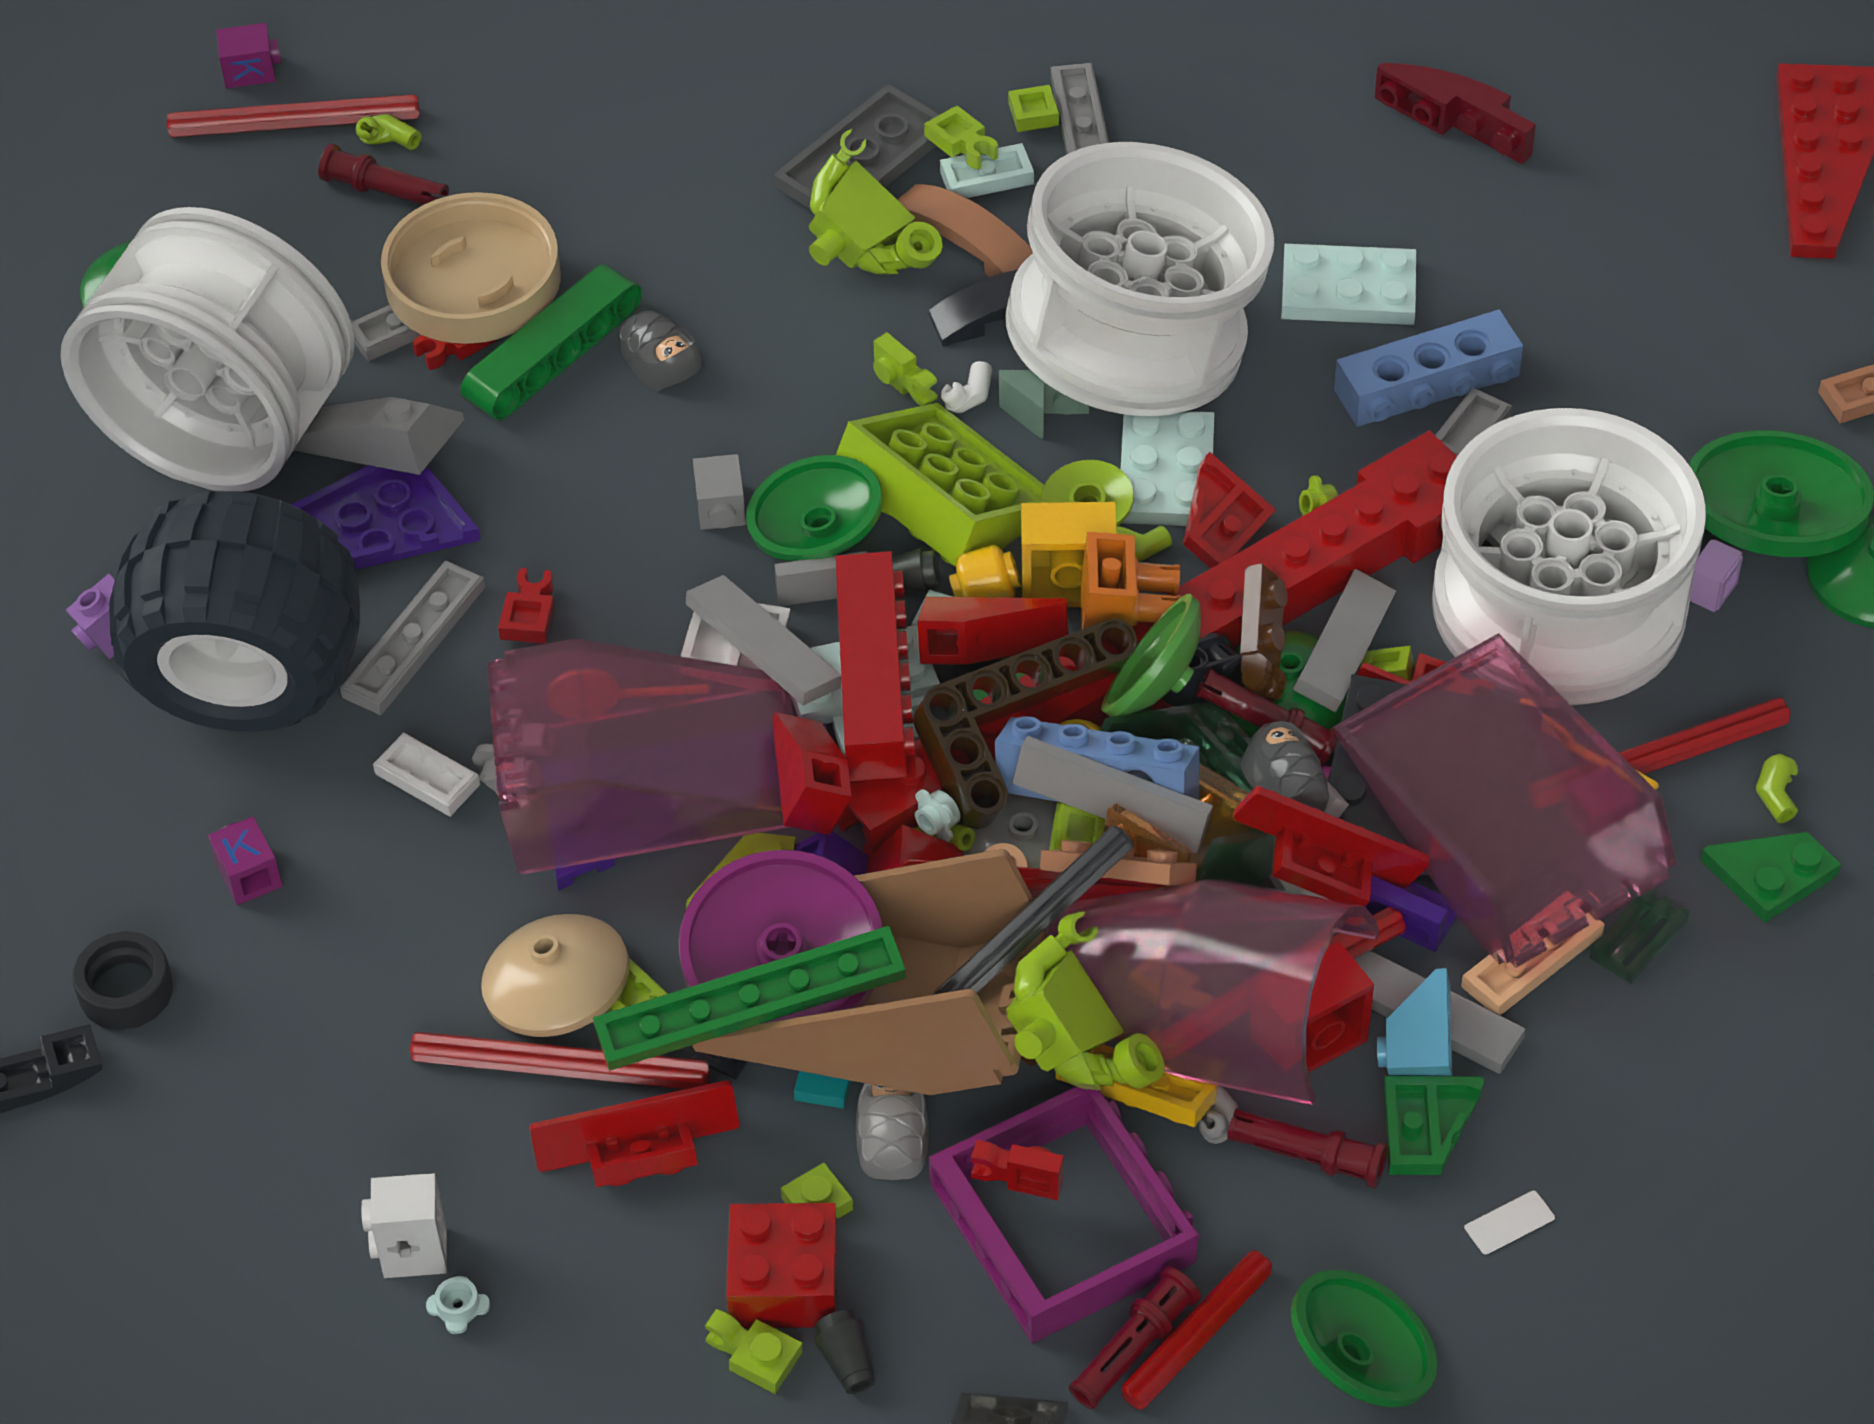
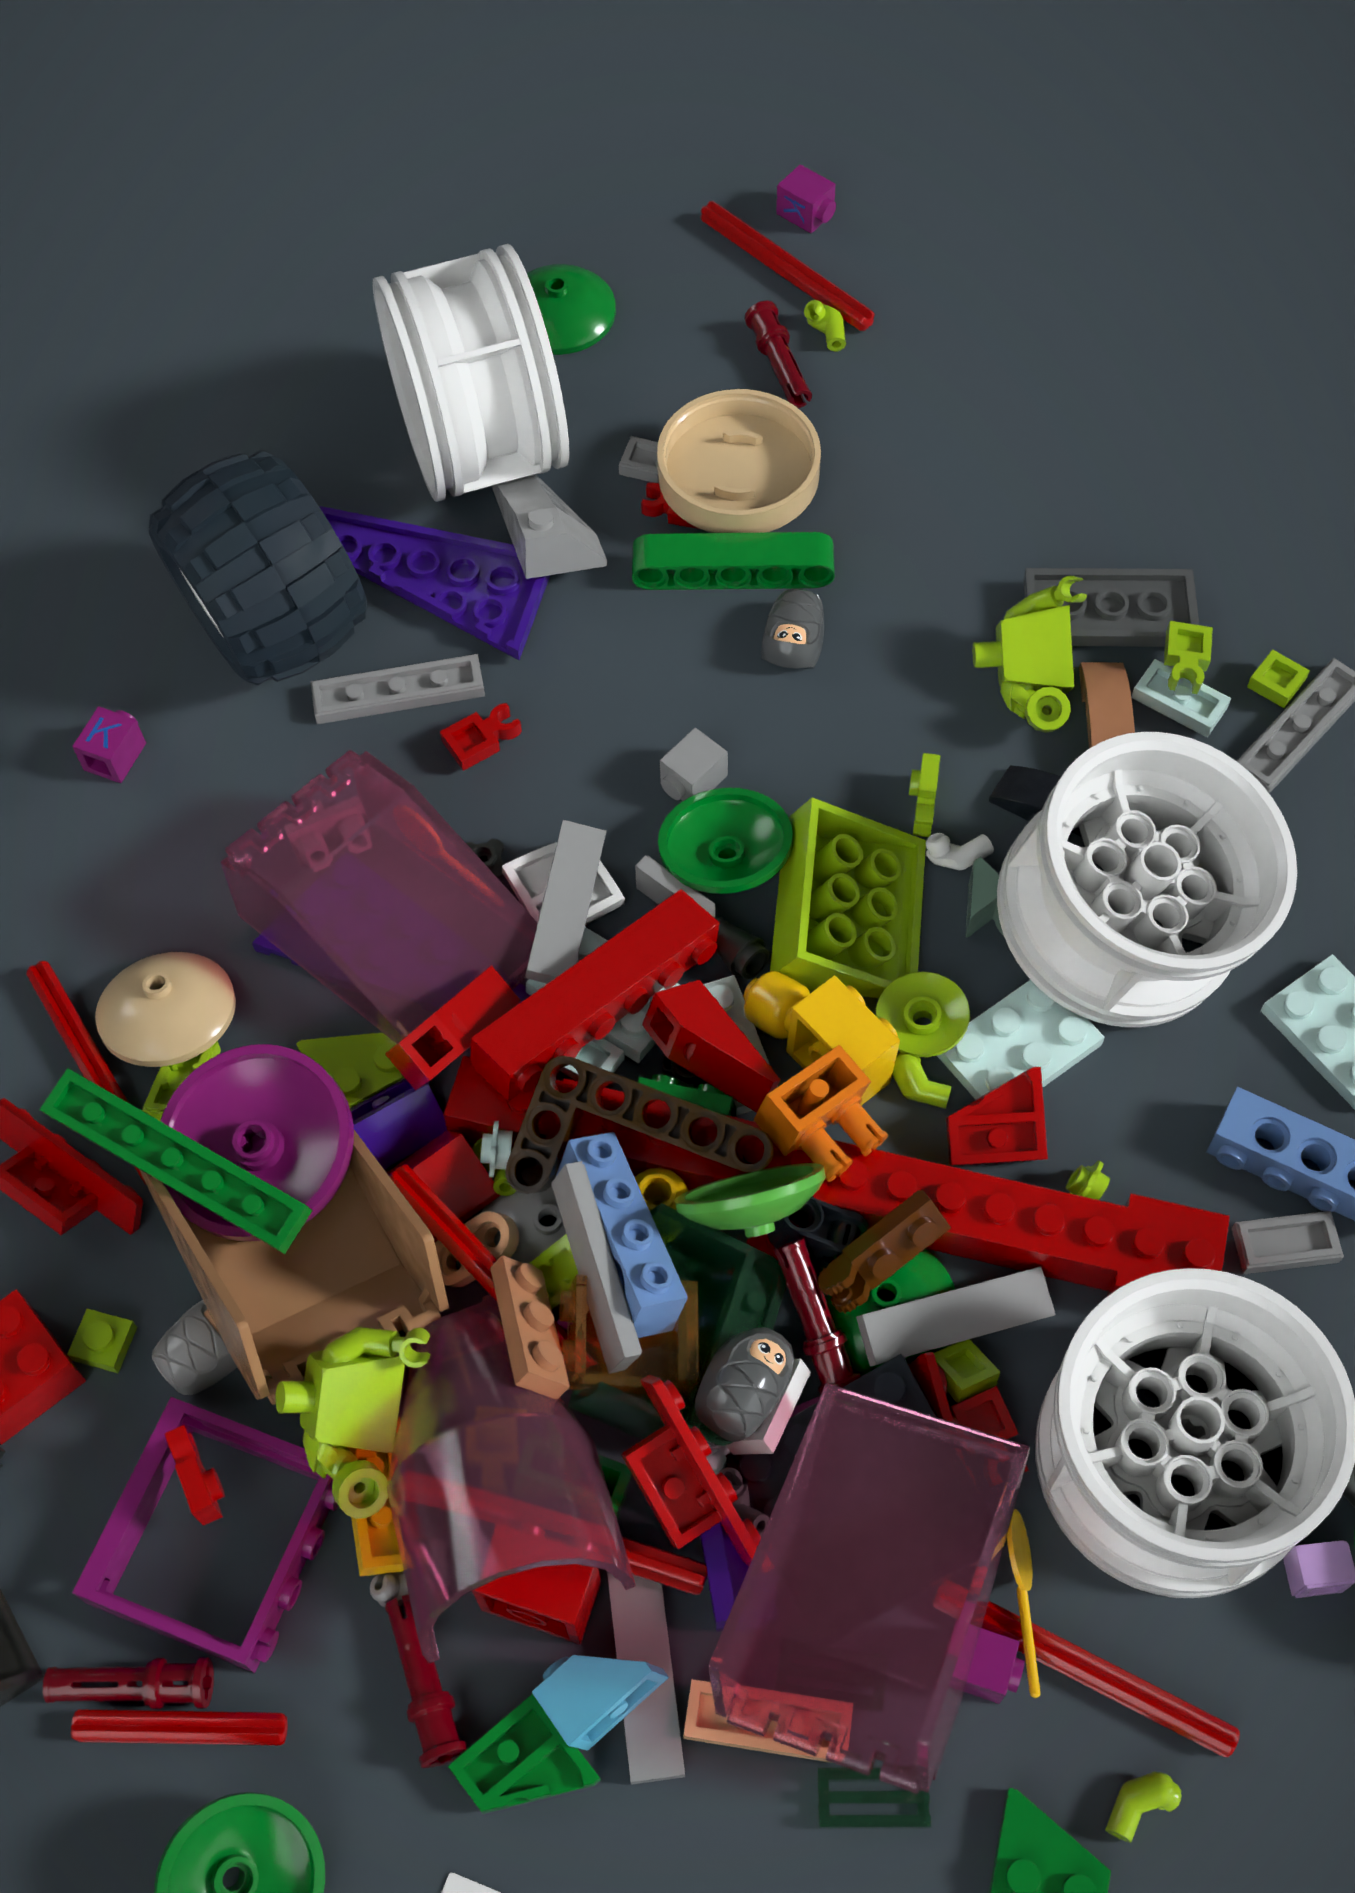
camera: 50 degrees right, 10 degrees up
(426, 774) = (275, 780): white plate -> none
(1040, 912) = (425, 1303): black axle -> none

